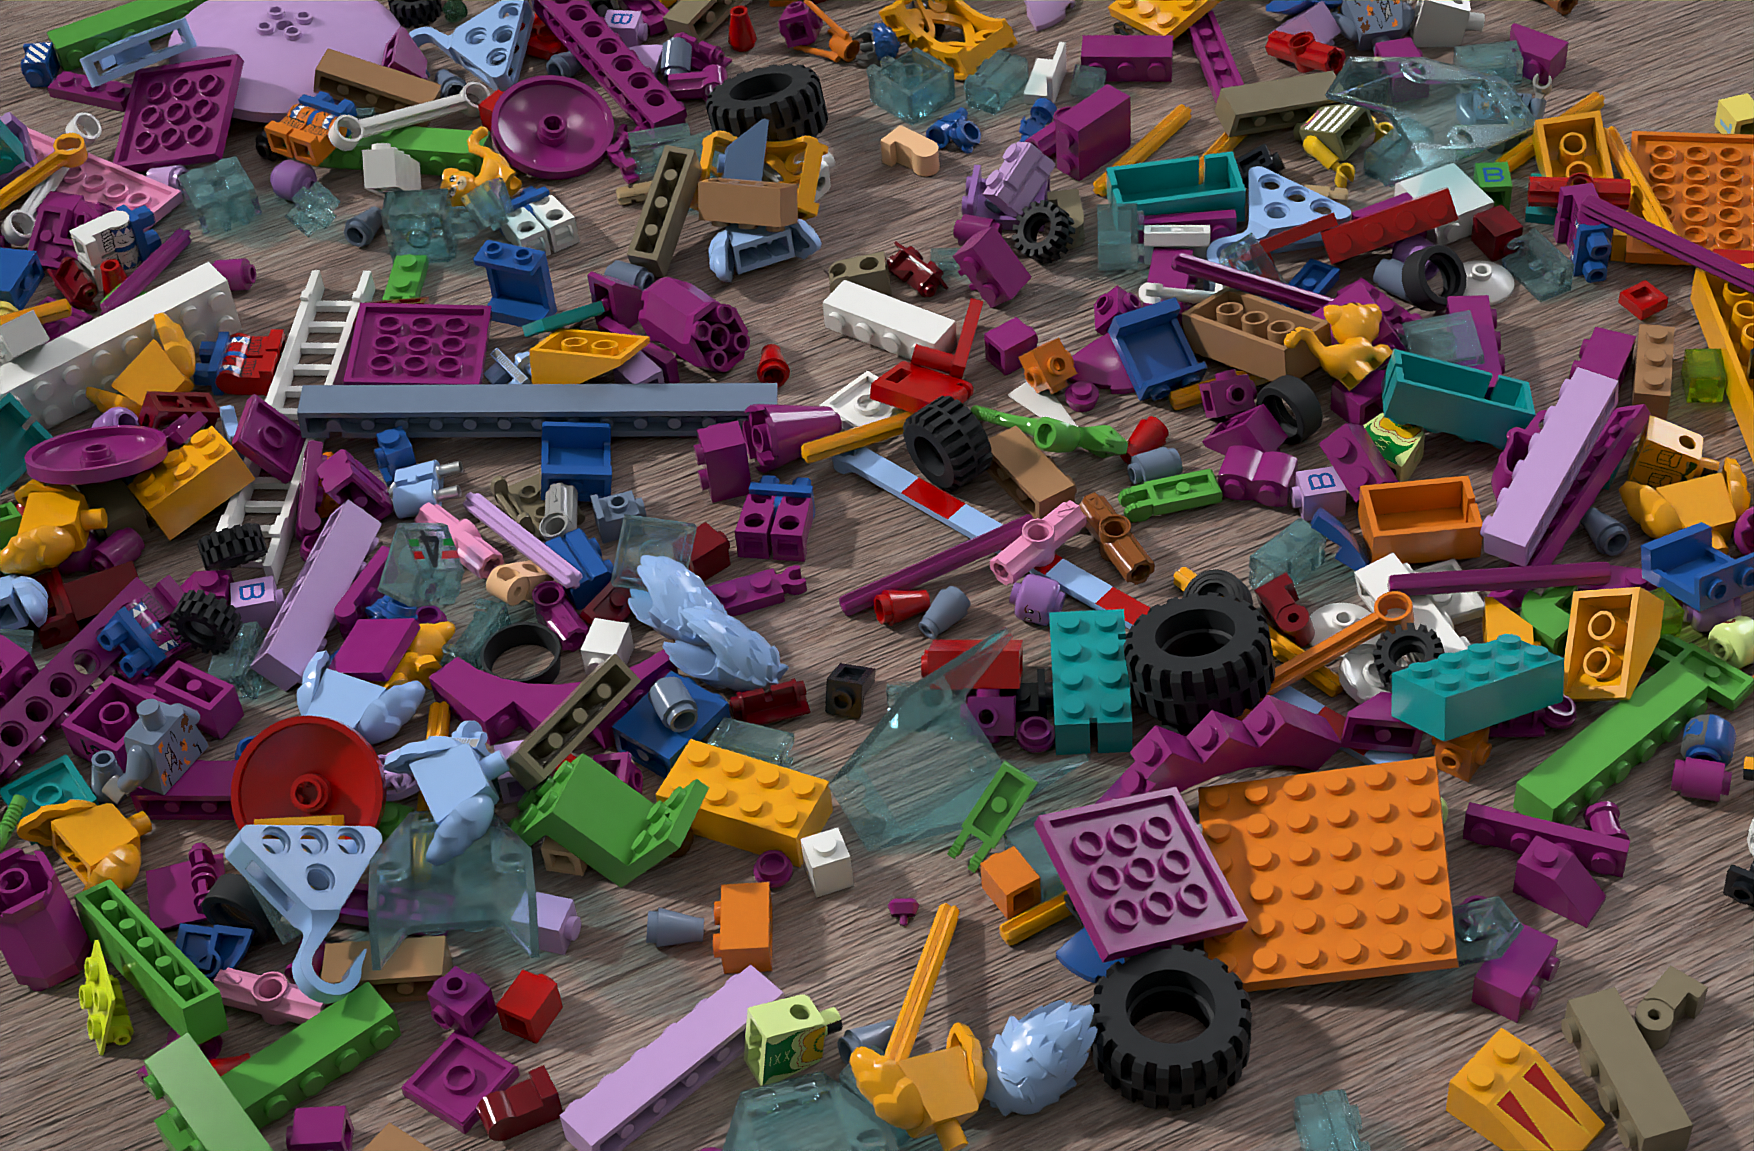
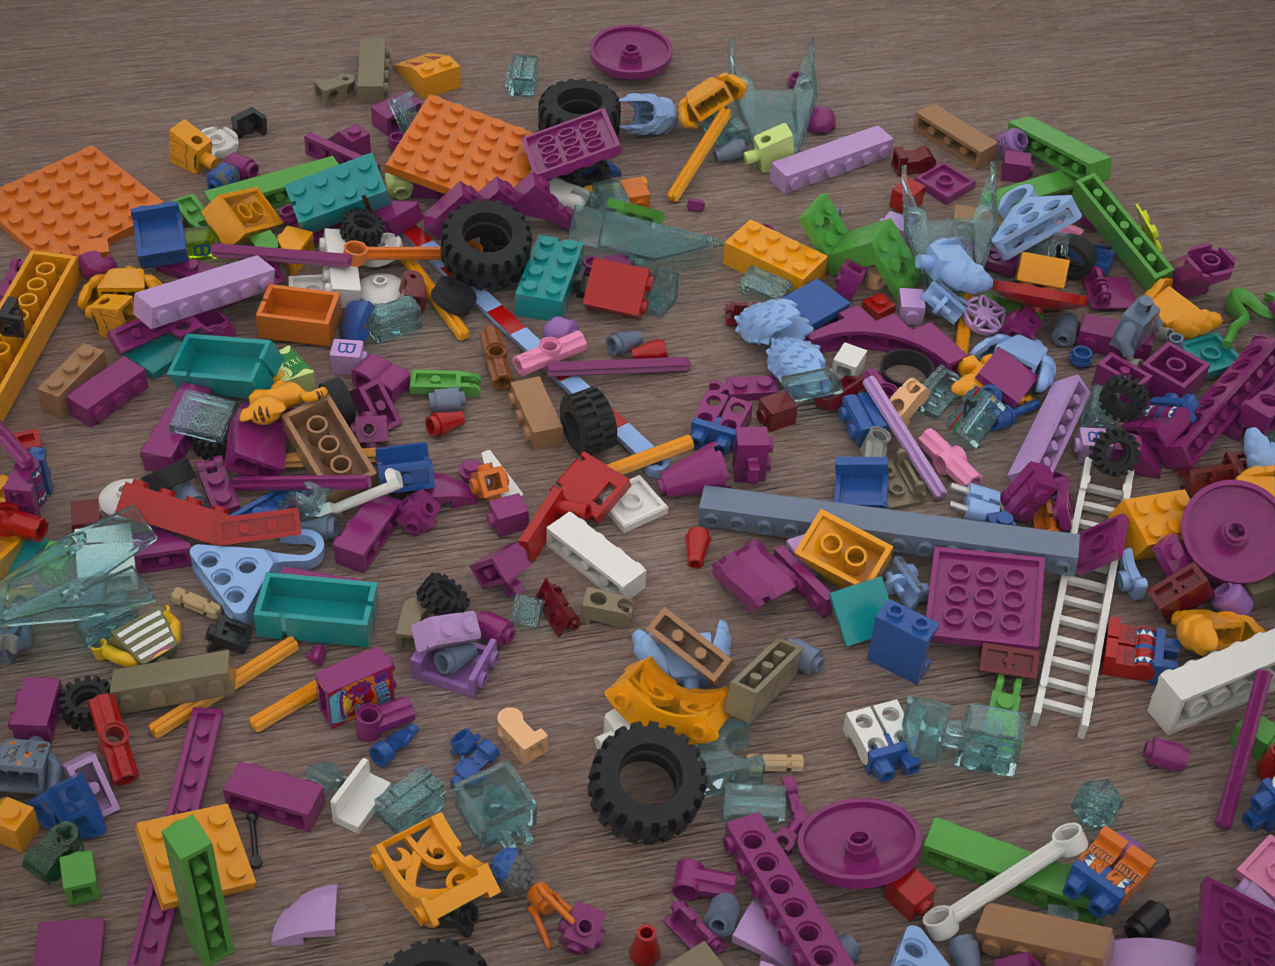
camera: 175 degrees left, 0 degrees up
(220, 195) = (1192, 847): clear light blue hinge -> none
(361, 593) = (1013, 436): magenta plate -> none
(363, 227) = (1045, 781): sand blue cone -> none
(389, 170) = (1018, 769): white brick -> none
(462, 1002) = (942, 198): magenta brick -> none
(493, 166) = (947, 789): light orange animal -> none
(571, 722) = (876, 285): dark tan brick -> none
(611, 510) = (829, 448): sand blue brick -> none
(618, 298) = (817, 618): magenta slope -> none
(673, 704) = (811, 290): sand blue brick -> none
(745, 155) = (683, 694): medium blue slope -> none
(745, 927) = (786, 206): orange brick -> none
(827, 862) = (732, 219): white brick -> none
(847, 689) = (696, 311): black bracket -> none
(1058, 436) = (505, 402): bright green animal -> none
(1118, 237) = (386, 568): clear light blue brick -> none
(1176, 236) = (340, 558): white panel -> none
(1356, 458) = (316, 348): magenta brick -> none
(1539, 266) = (77, 484): clear light blue hinge -> none
(1603, 819) = (307, 154): magenta bush -> none
(1703, 375) = (35, 373): clear neon green brick -> none

